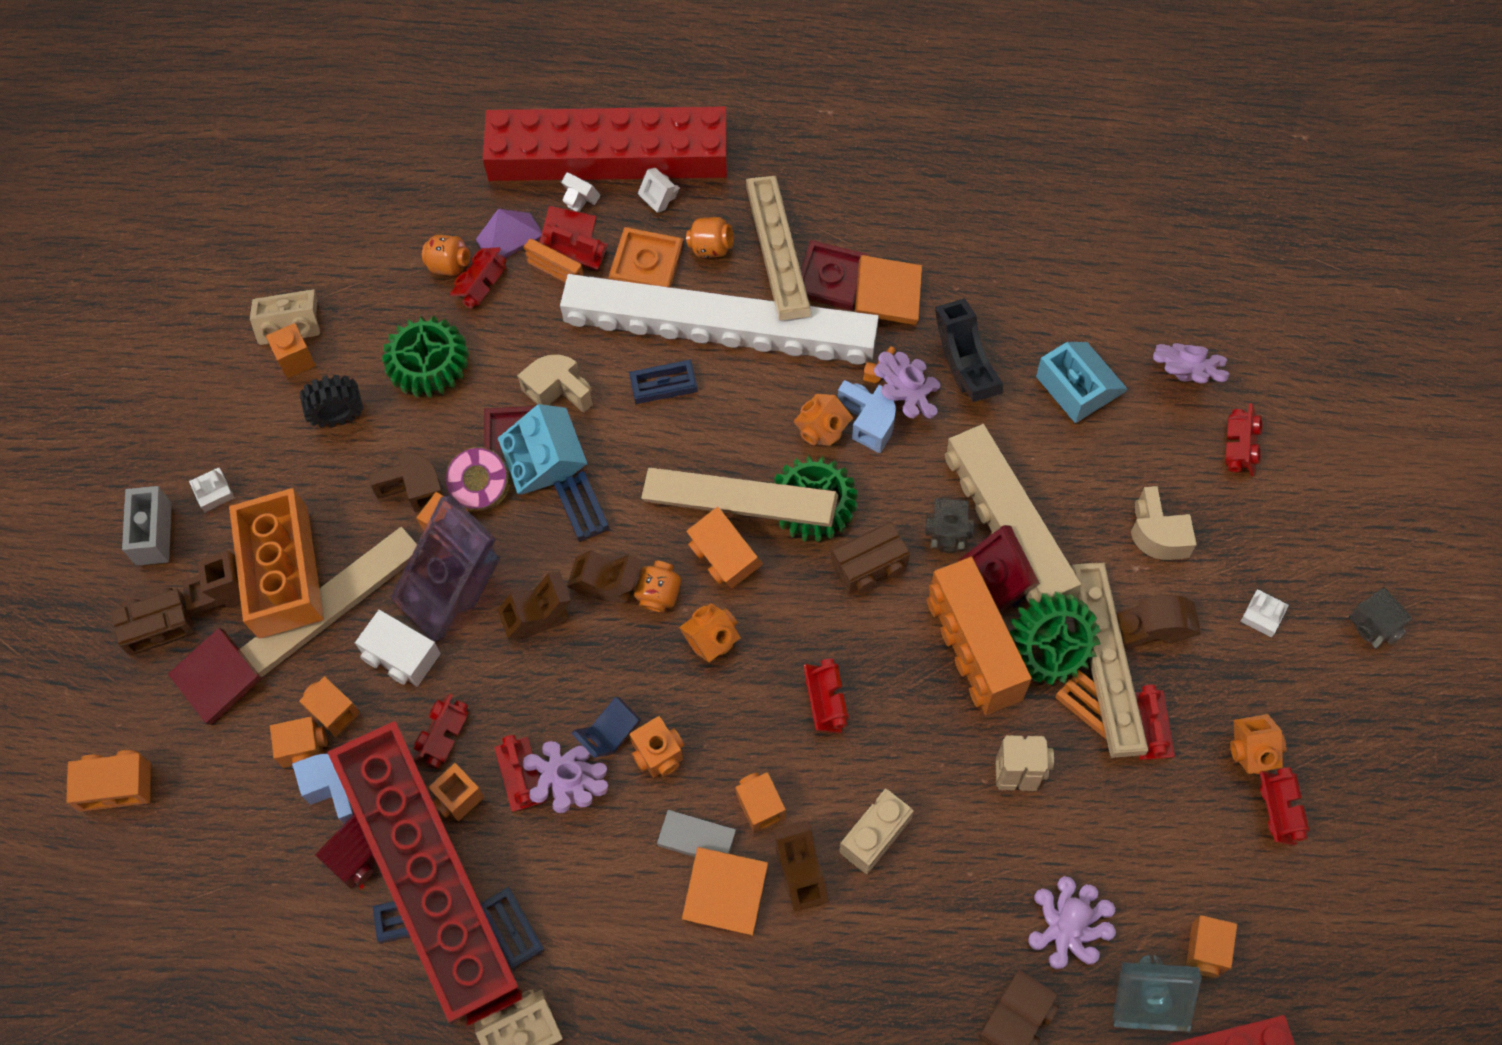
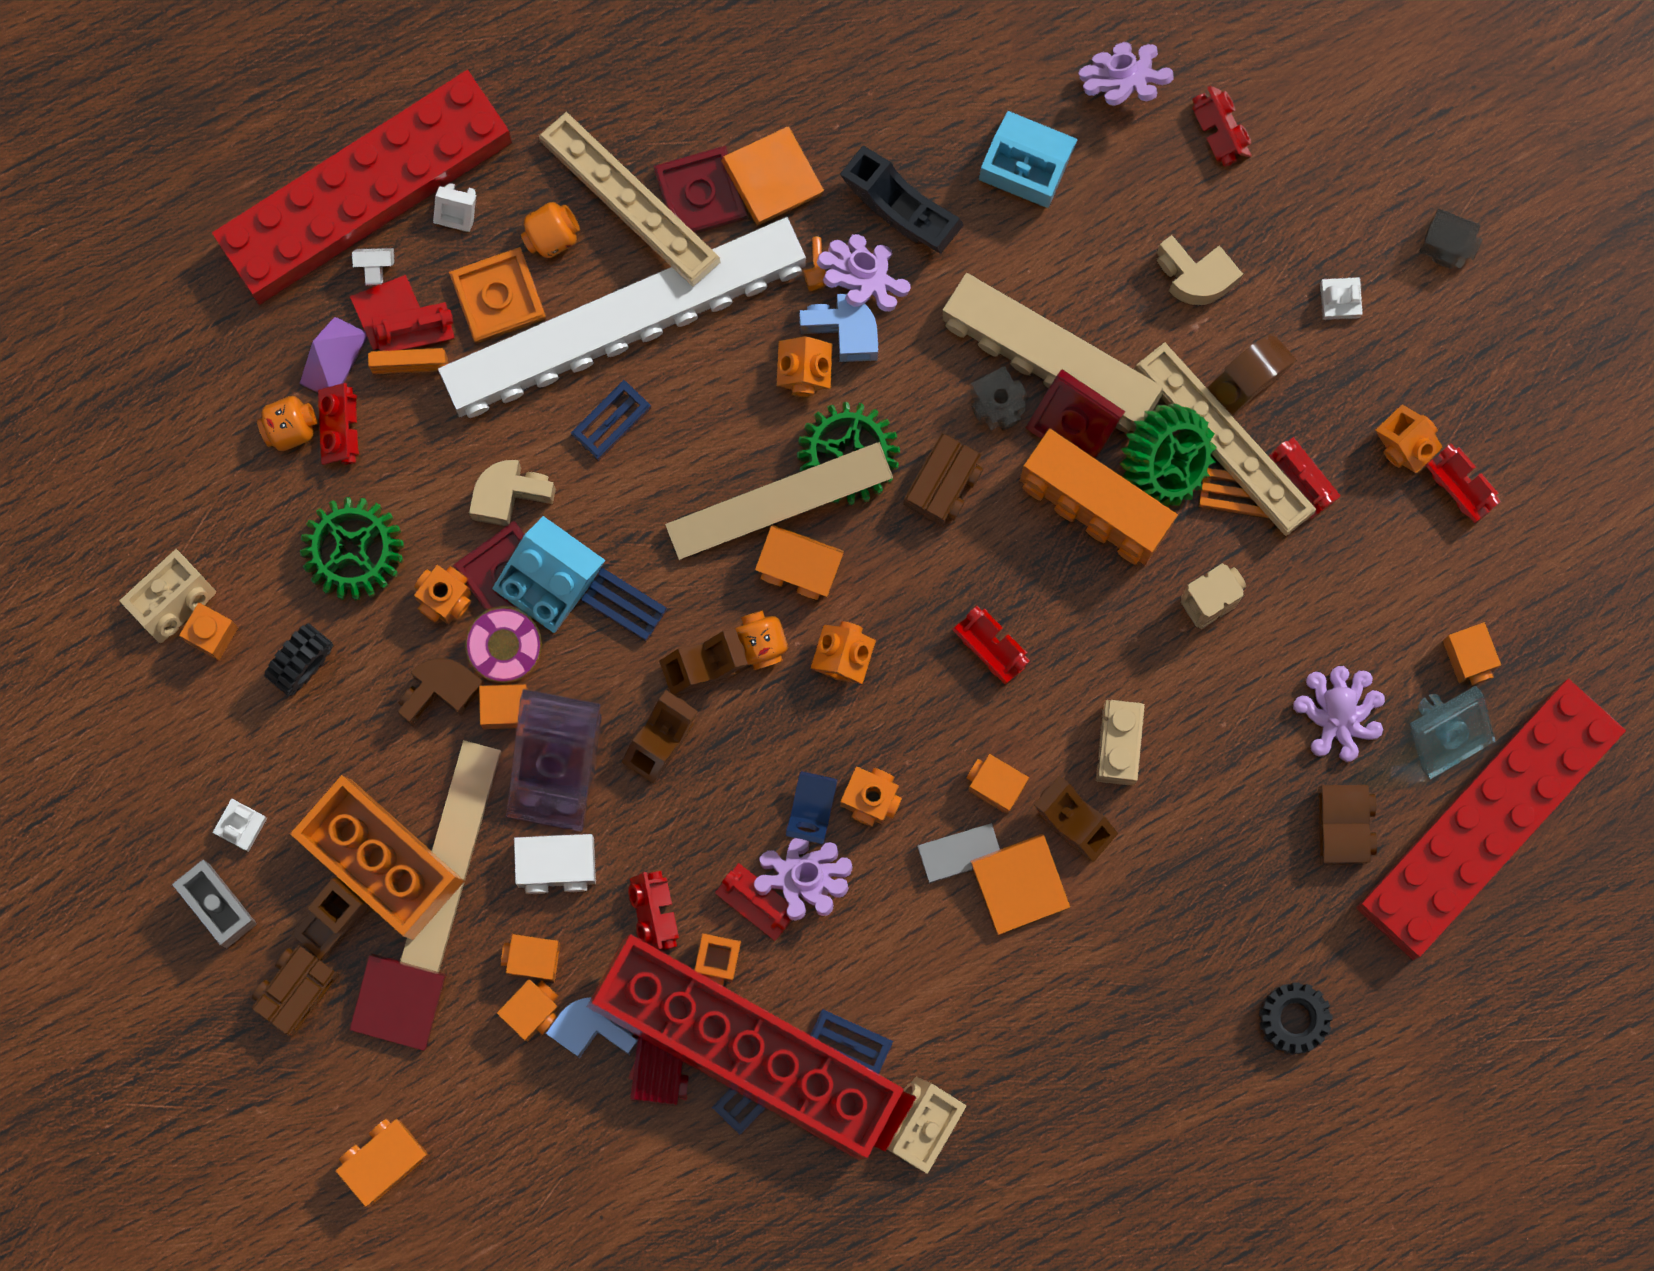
camera: 40 degrees left, 15 degrees up
(460, 420) = (447, 607): none -> orange brick

